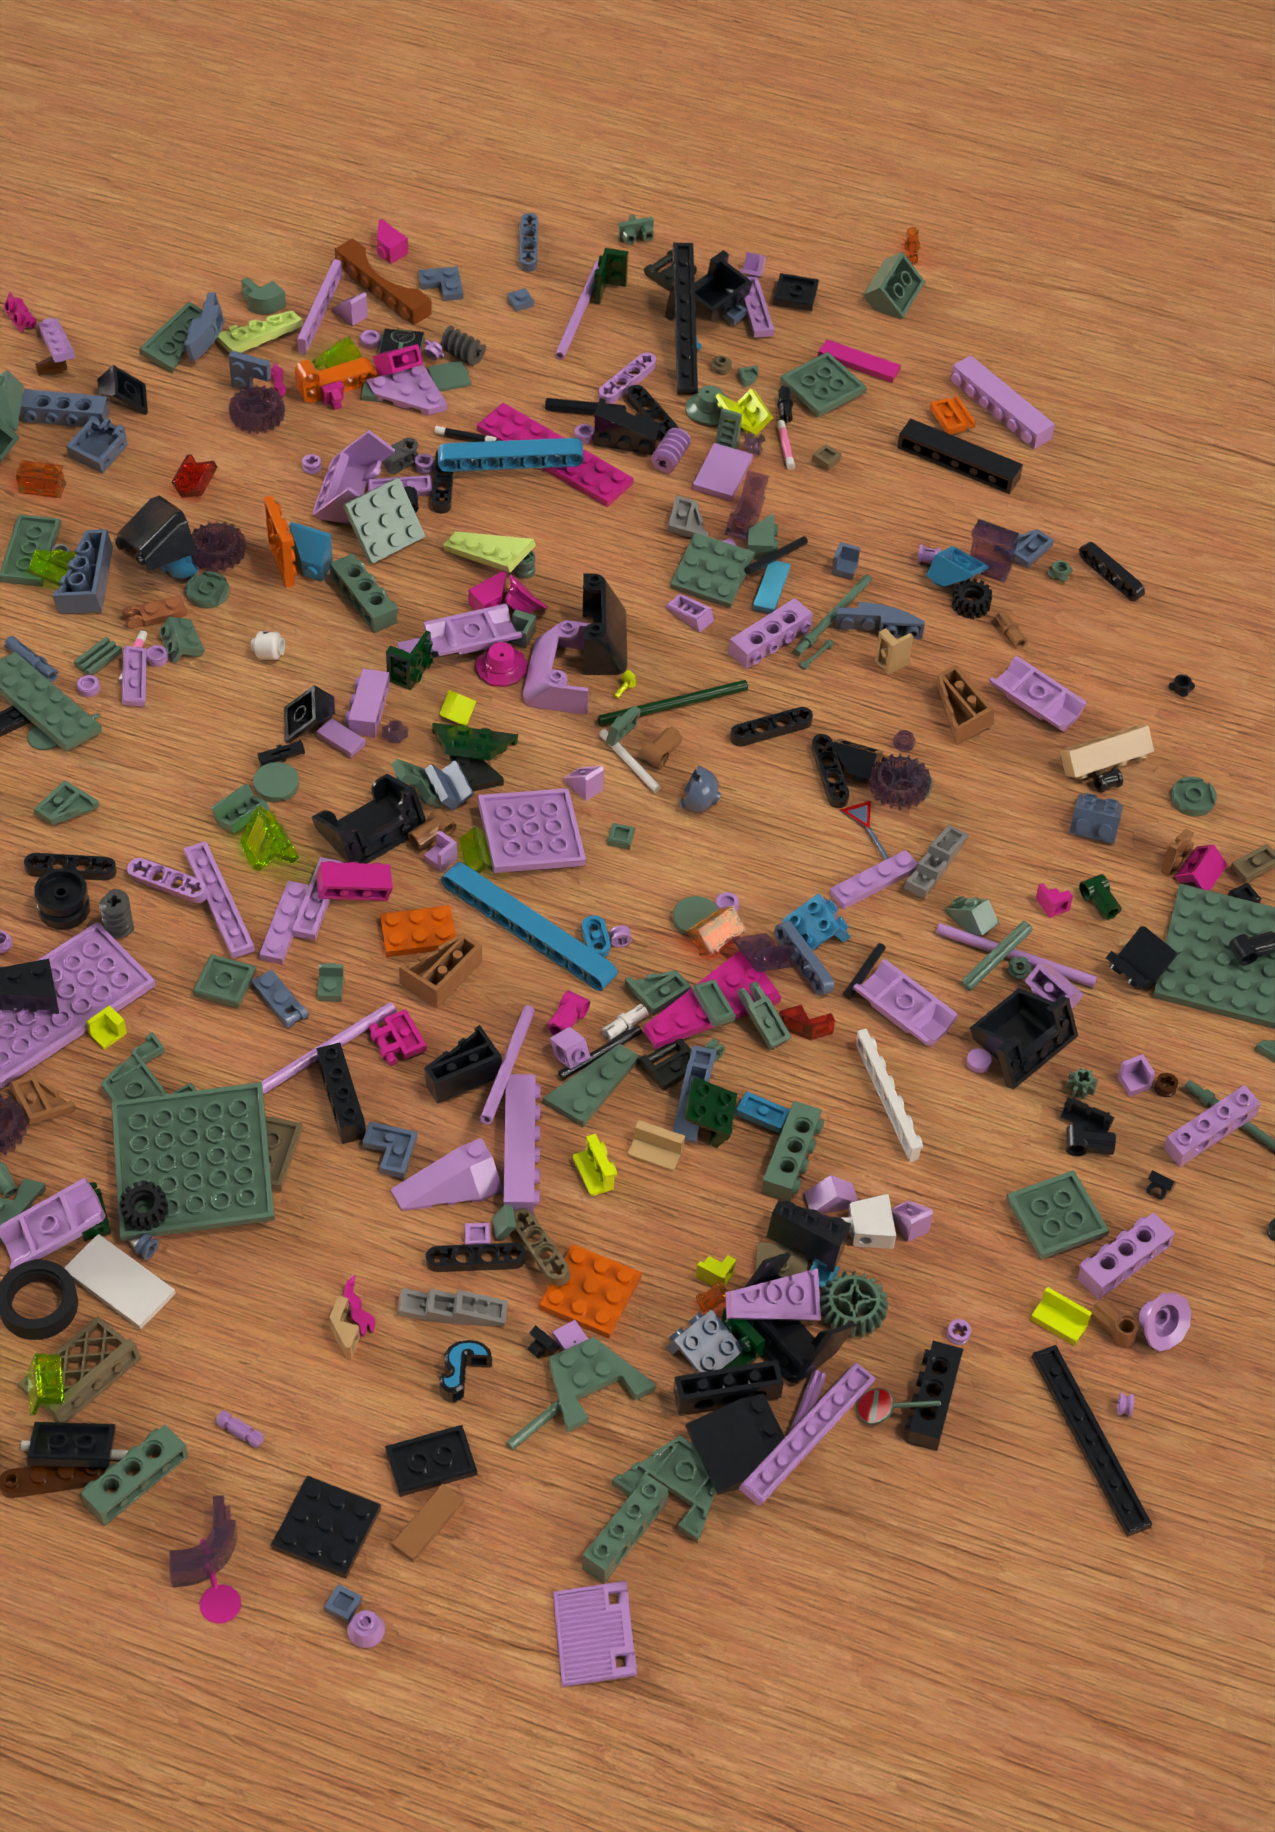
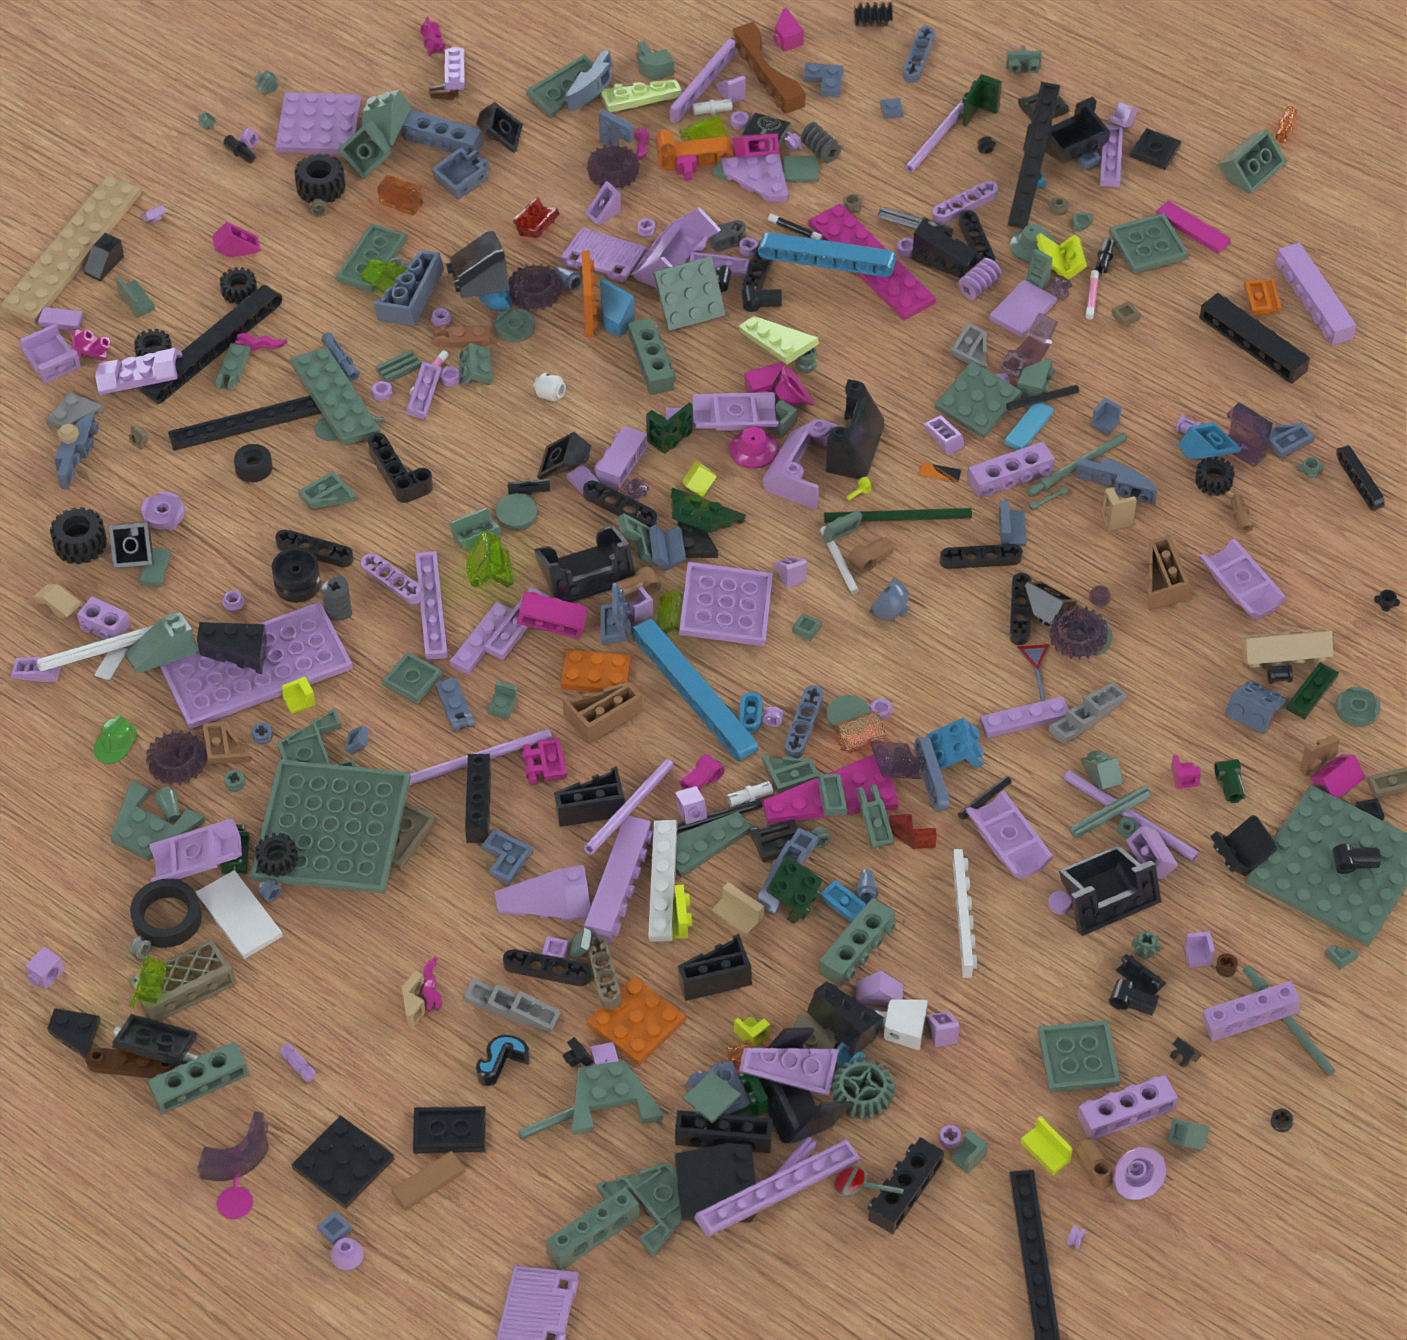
camera: 20 degrees right, 0 degrees up
(20, 1345) = (140, 947): none -> light grey bush
(72, 1137) = (234, 787): none -> sand green bush
(77, 1070) = (267, 735): none -> sand blue bush
(126, 597) = (440, 317): none -> lavender plate
(143, 778) = (403, 484): none -> black beam
(187, 1060) = (357, 739): none -> sand blue plate
(252, 531) = (570, 279): none -> sand blue cone
(262, 448) = (605, 205): none -> lavender slope
(289, 494) = (607, 253): none -> lavender window
(338, 331) = (712, 107): none -> white pin
(385, 748) = (622, 501): none -> black beam
(422, 871) = (614, 618): none -> sand blue bracket
(450, 514) = (754, 298): none -> black piece
(470, 209) = (873, 14): none -> black piece
(515, 399) = (852, 203): none -> dark tan plate
(568, 1135) = (663, 880): none -> white plate
(628, 318) = (986, 145): none -> black plate
(655, 934) = (802, 721): none -> sand blue beam
(659, 1217) = (716, 971): none -> black wedge
(698, 650) = (940, 472): none -> sticker
(706, 1353) = (711, 1097): none -> sand green piece
(780, 1091) = (866, 886): none -> sand blue cone
(790, 688) = (1011, 525): none -> sand blue panel
(985, 1342) = (970, 1152): none -> sand green panel
(1144, 790) = (1312, 690): none -> dark green tile
(1195, 1267) = (1188, 1133): none -> sand green panel

